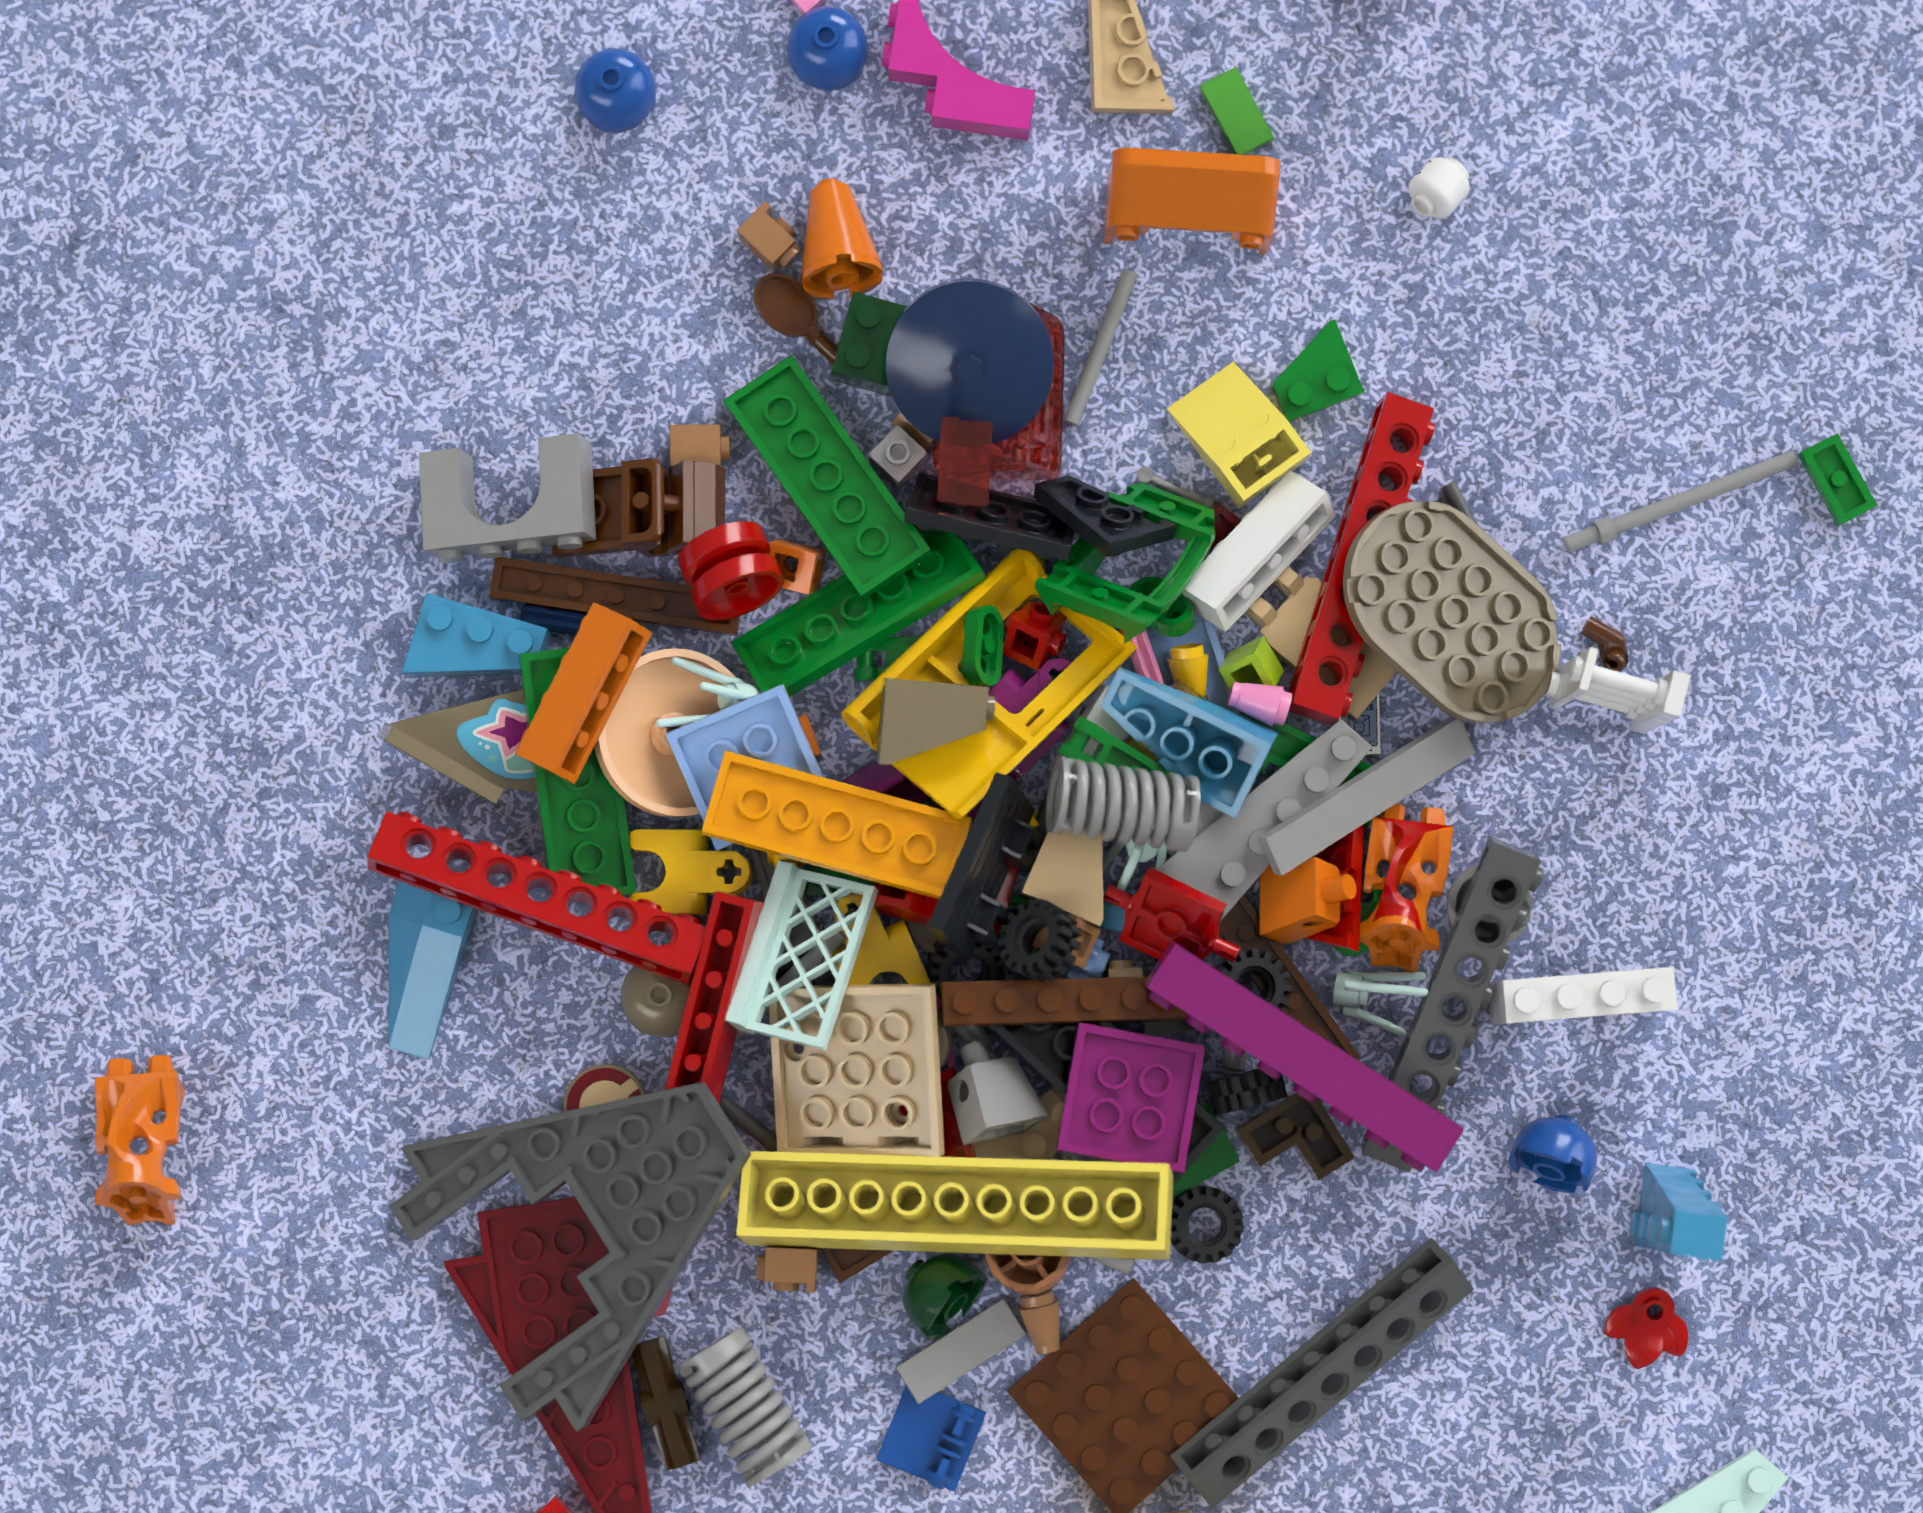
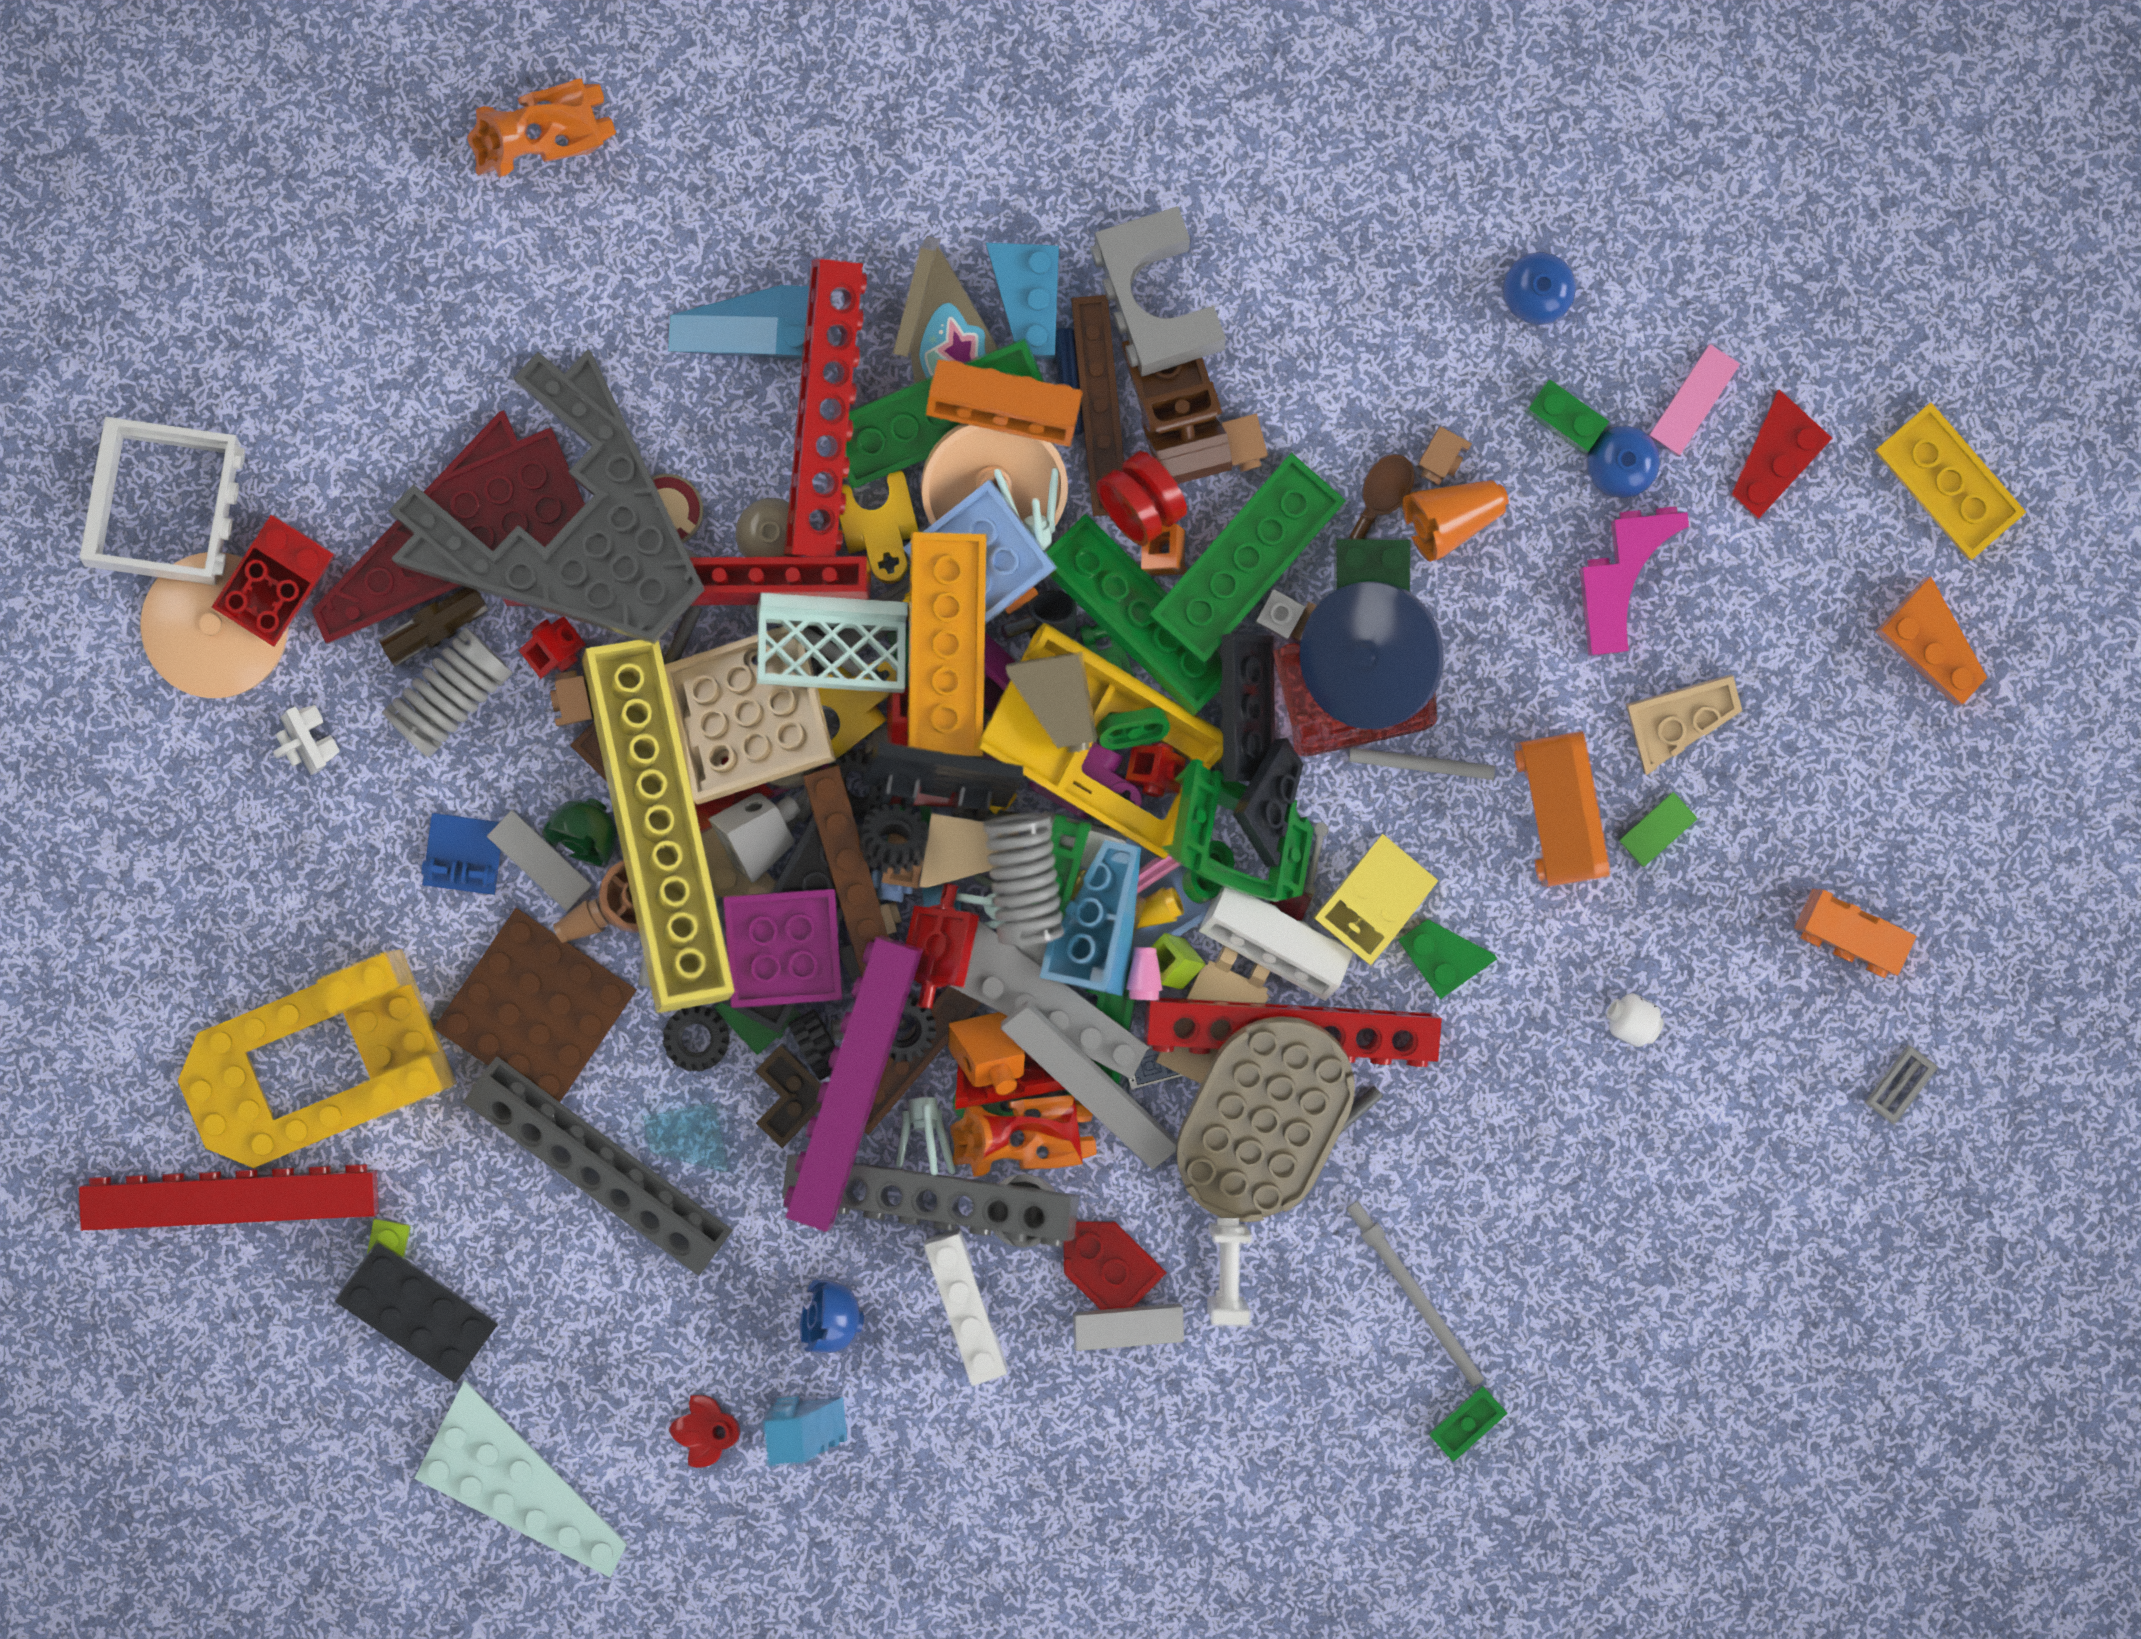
camera: 80 degrees right, 5 degrees up
(721, 1266) = (557, 641): none -> red brick
(762, 94) = (1566, 416): none -> green brick
(824, 710) = (1050, 608): none -> black piece
(964, 462) = (1284, 672): clear red panel -> none
(1311, 1261) = (688, 1135): none -> clear light blue wing
(1573, 827) = (1109, 1265): none -> red tile
(1610, 643) = (1275, 1263): reddish brown arm -> none
(1644, 823) = (1128, 1327): none -> light grey tile

